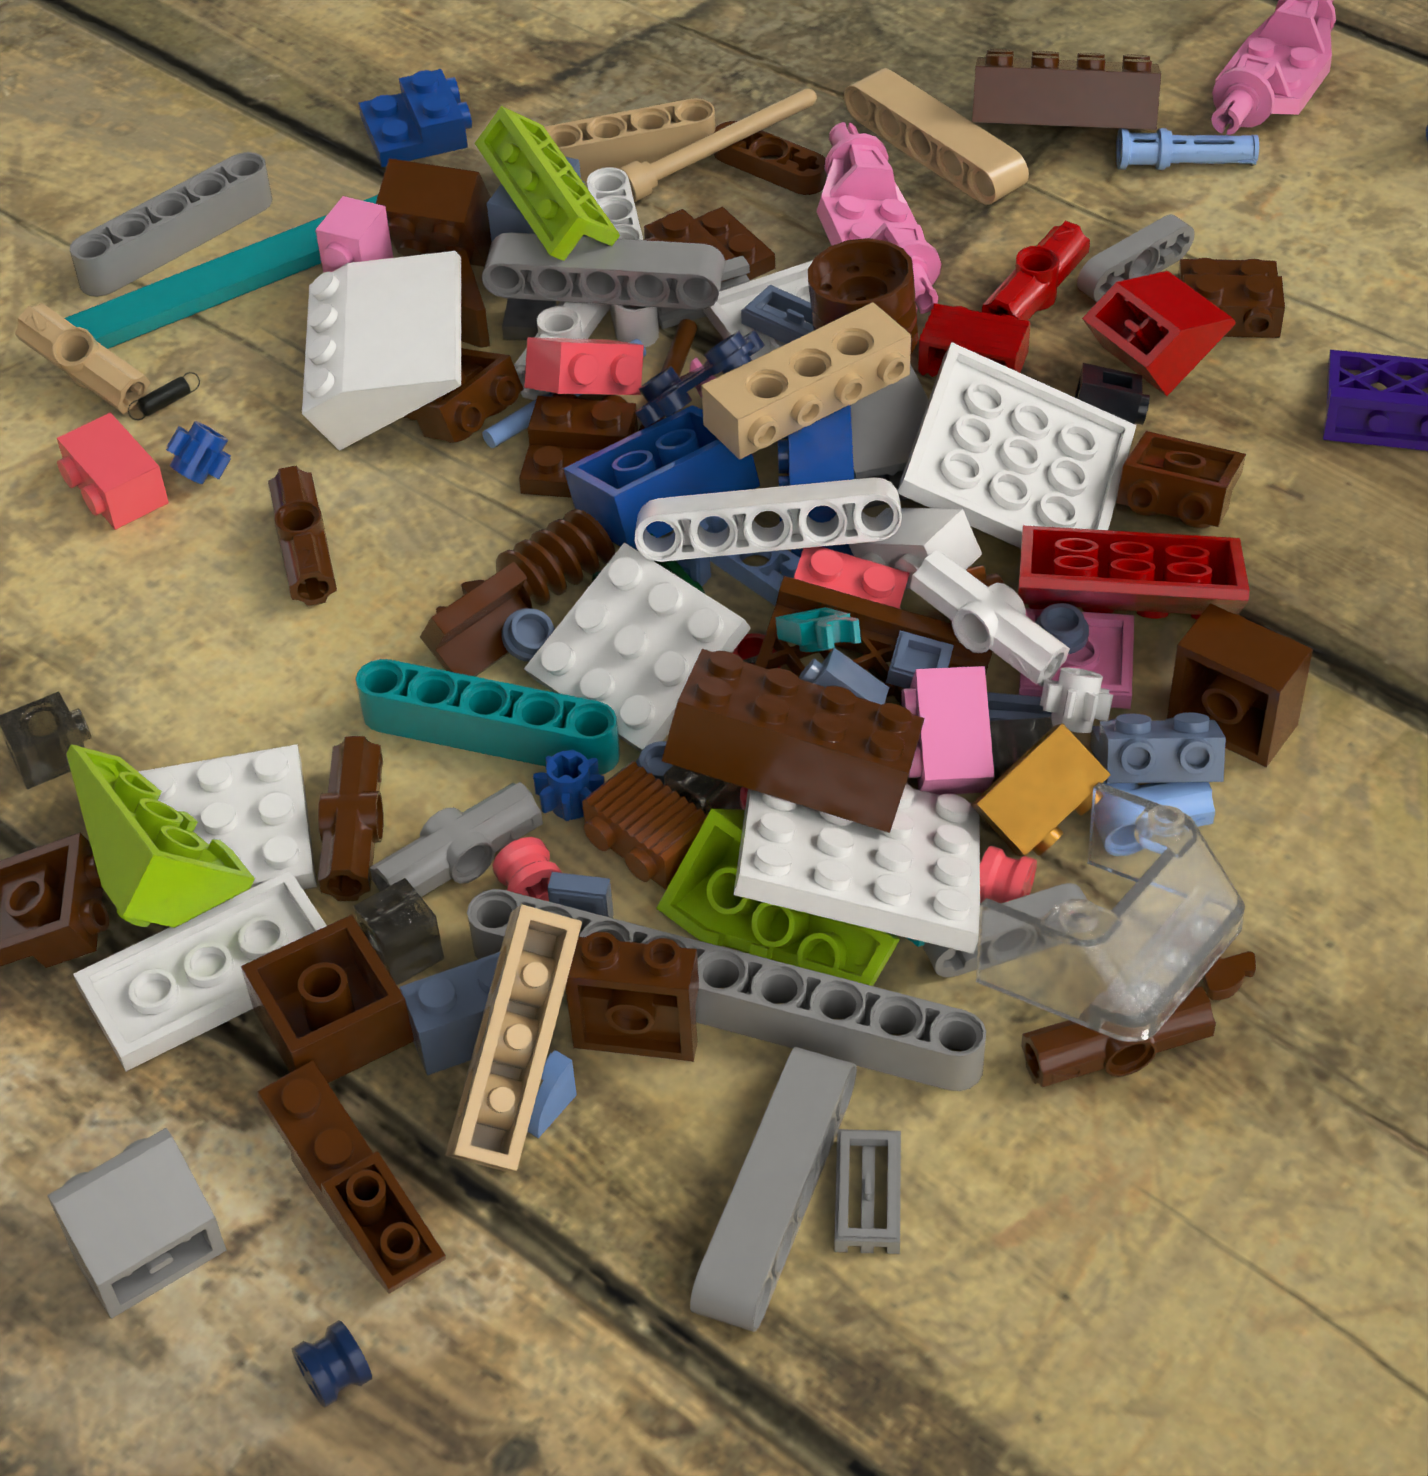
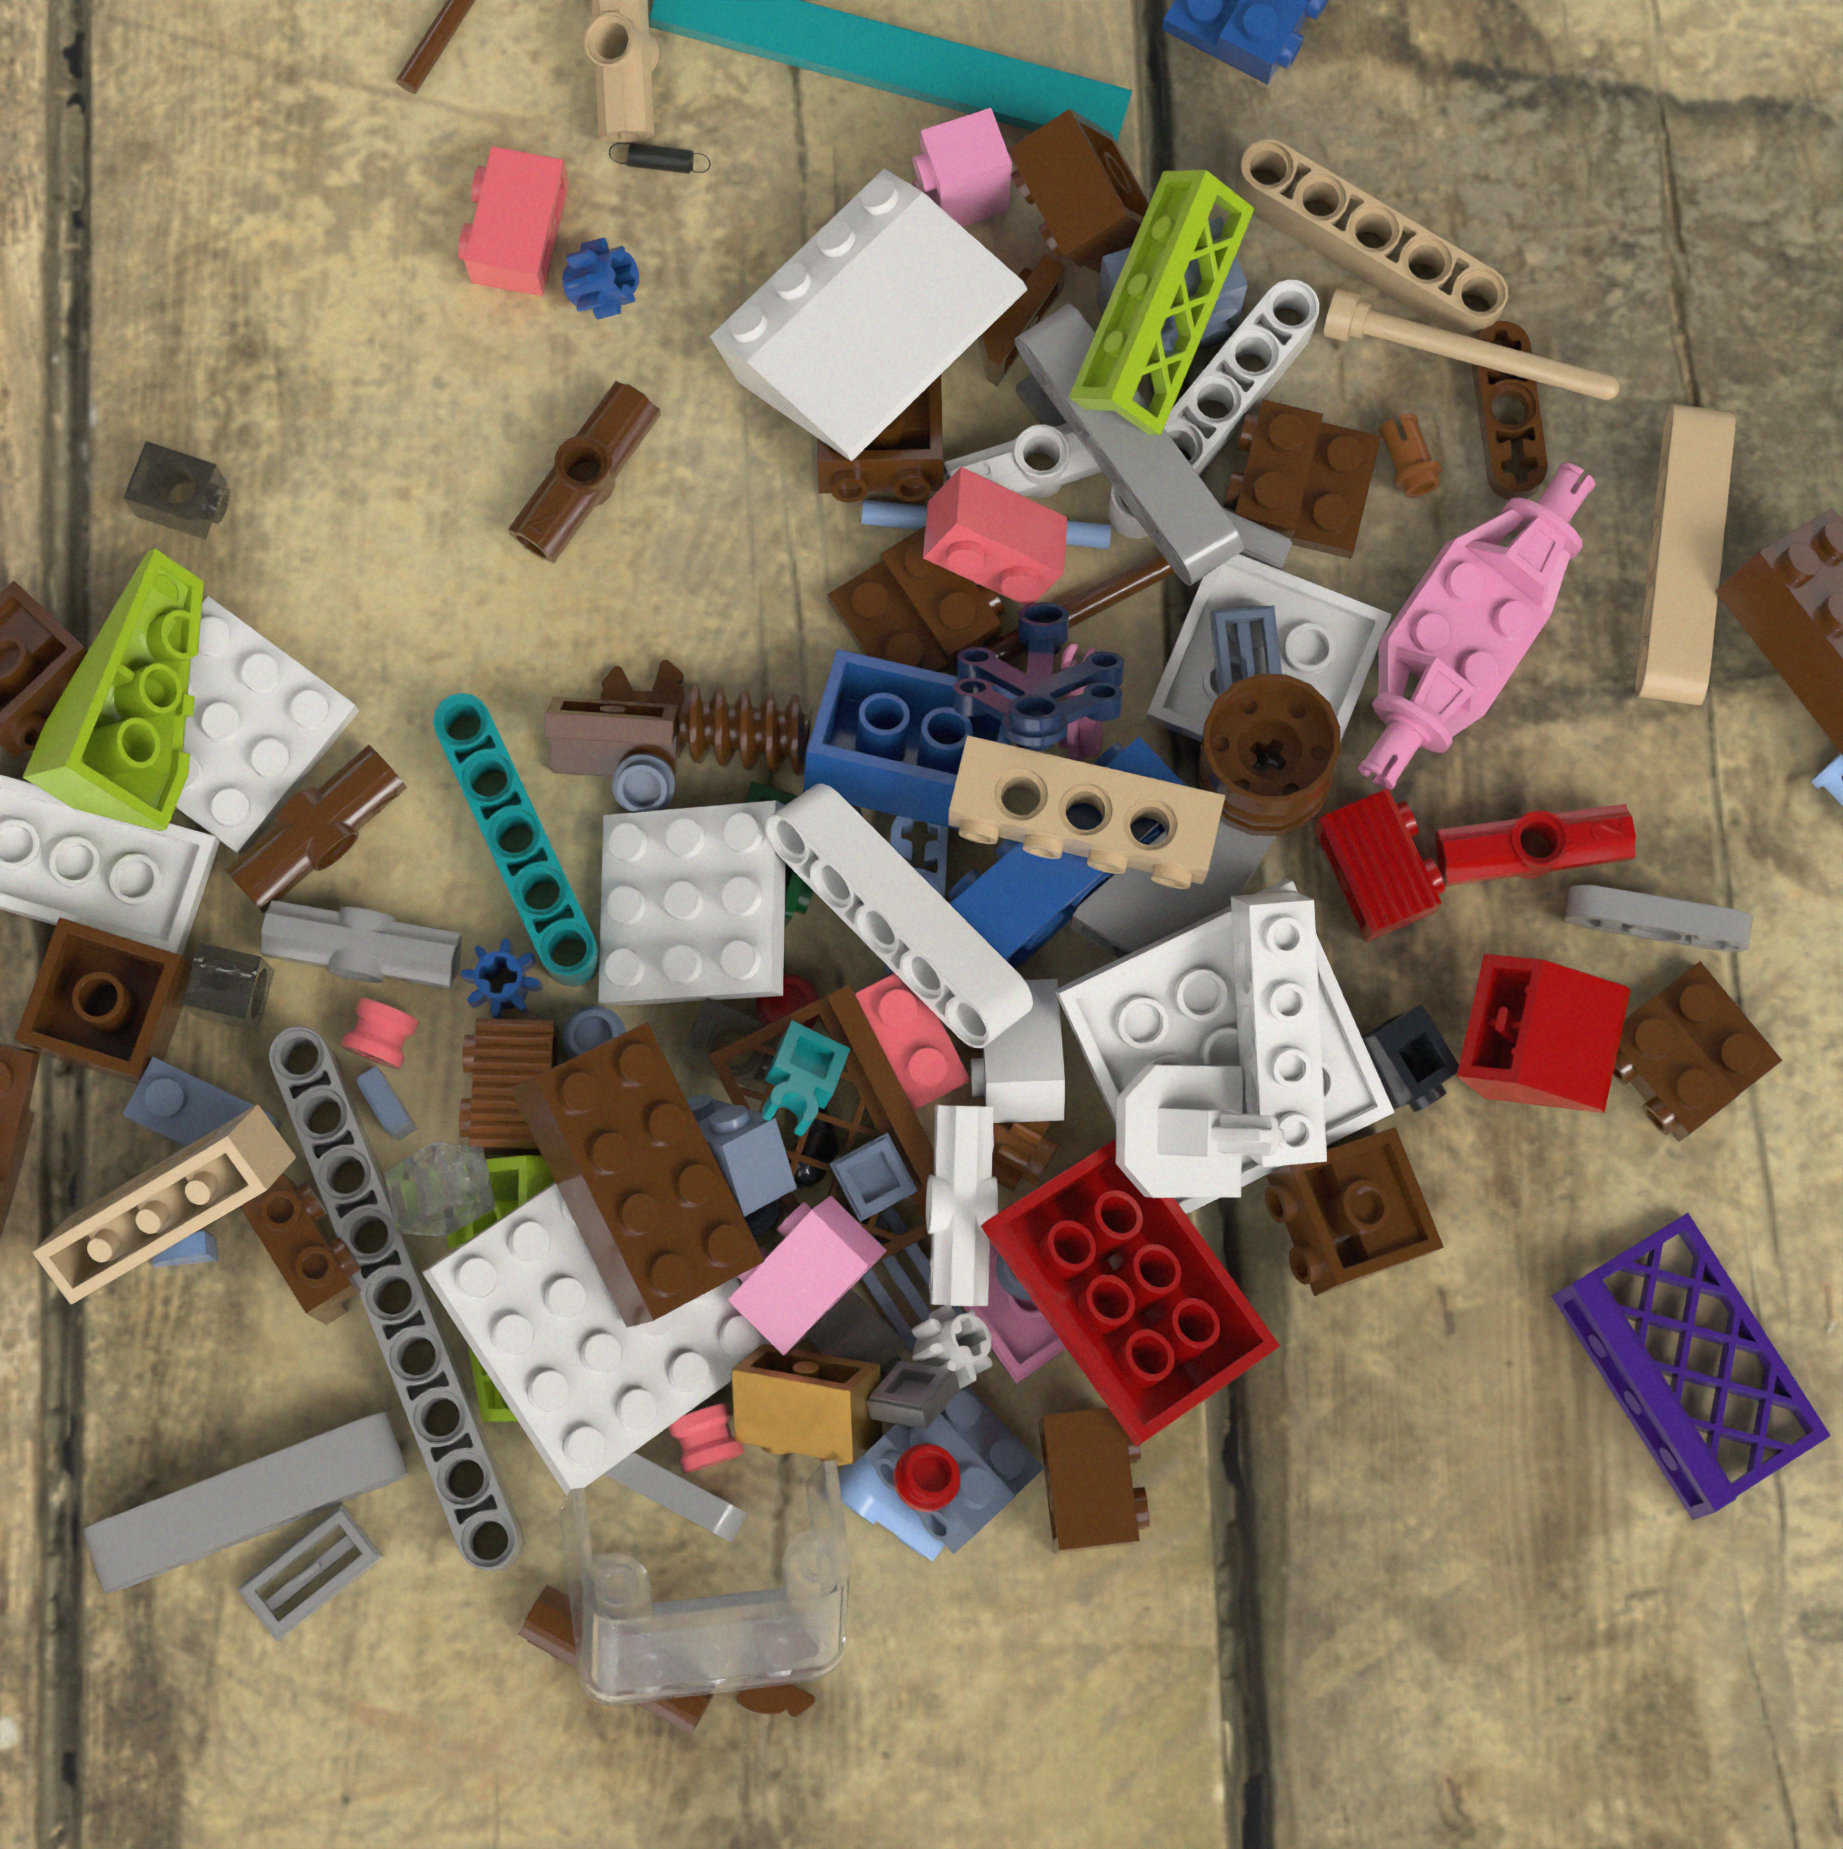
camera: 45 degrees right, 30 degrees up
(677, 892) = (439, 1189): none -> clear brick
(749, 203) = (1411, 459): none -> dark orange pin
(1036, 400) = (1280, 1020): none -> white brick
(1056, 482) = (1187, 1131): none -> white piece
(1094, 717) = (913, 1395): none -> flat silver tile
(1163, 721) = (926, 1477): none -> red plate

